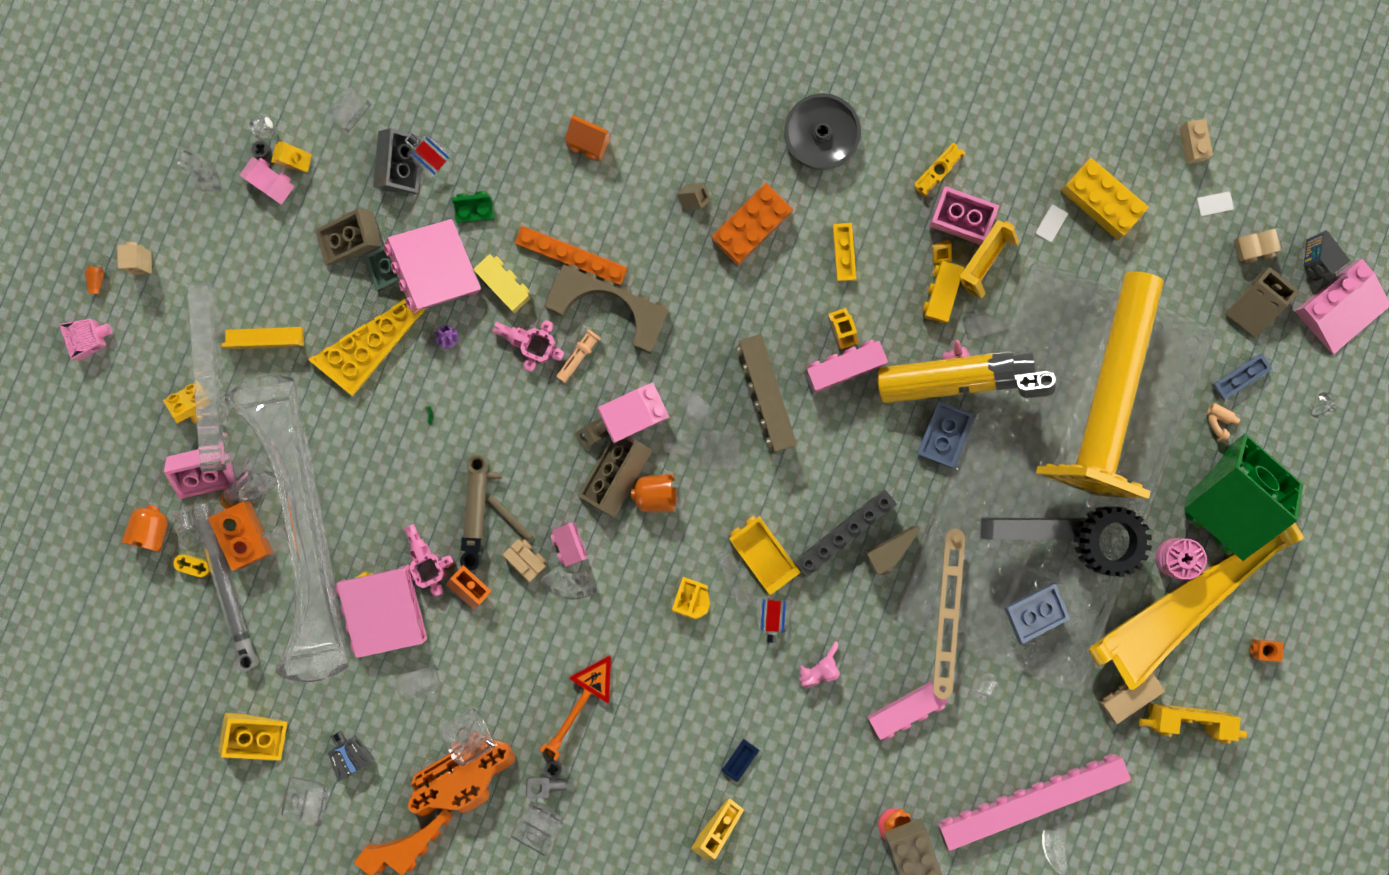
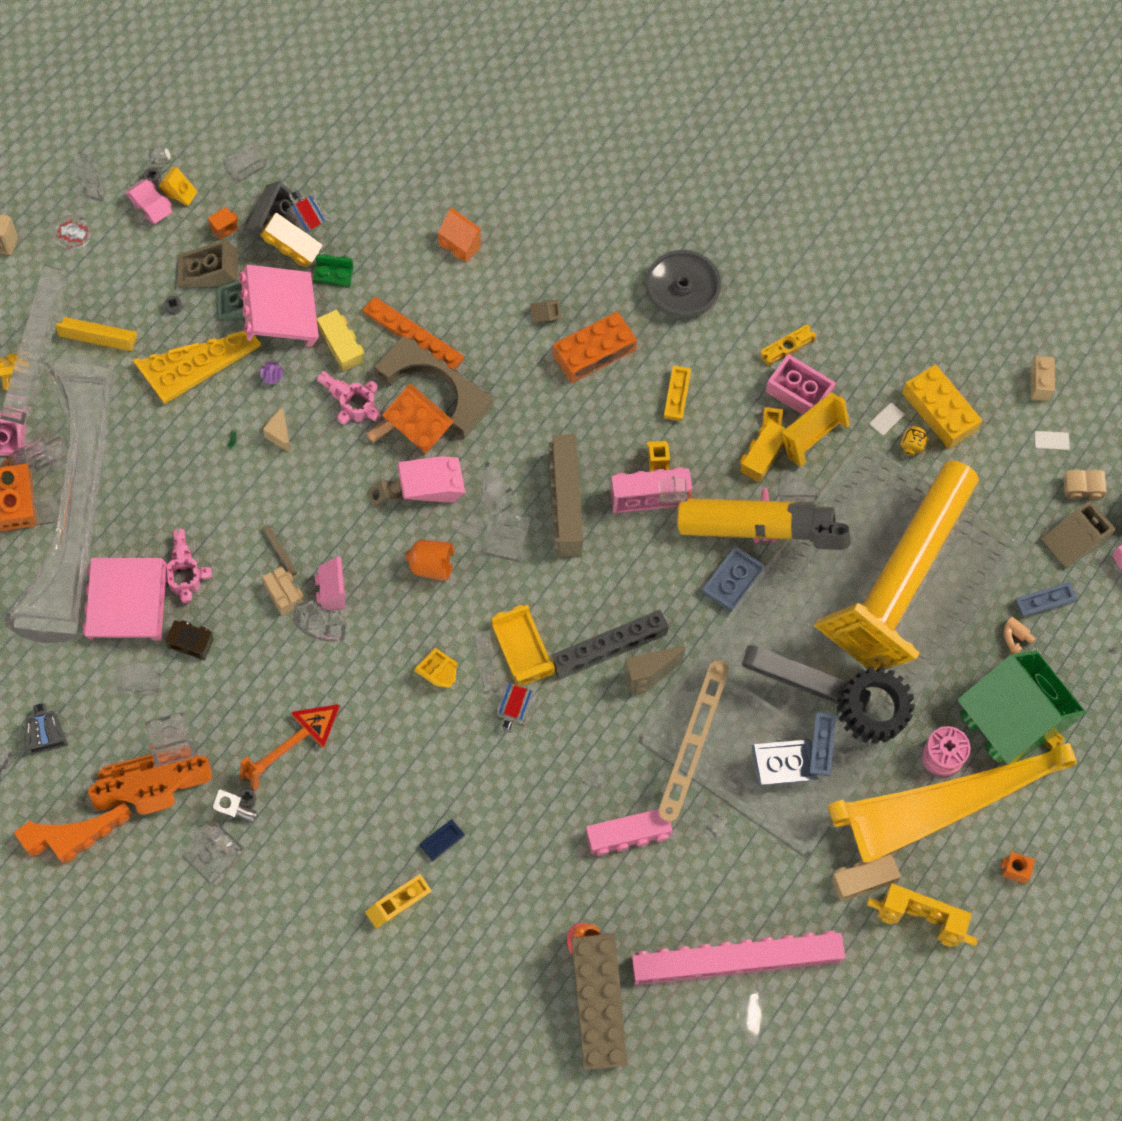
camera: 10 degrees right, 20 degrees down
(202, 232) = (72, 232): none -> clear tile
(324, 282) = (175, 310): none -> dark grey bush
(349, 184) = (223, 223): none -> orange brick
(421, 190) = (290, 240): none -> brick
(453, 632) = (189, 639): none -> dark brown brick
(468, 587) = (218, 600): orange brick -> none
(471, 396) = (277, 430): none -> tan slope
(474, 511) = (236, 559): dark tan piece -> none
(603, 353) = (418, 418): none -> orange brick
(615, 474) = (397, 534): dark tan slope -> none
(823, 670) = (552, 770): bright pink animal -> none
(870, 370) = (672, 490): none -> clear panel
(1069, 588) = (822, 744): none -> sand blue plate
(1085, 243) = (914, 441): none -> yellow head

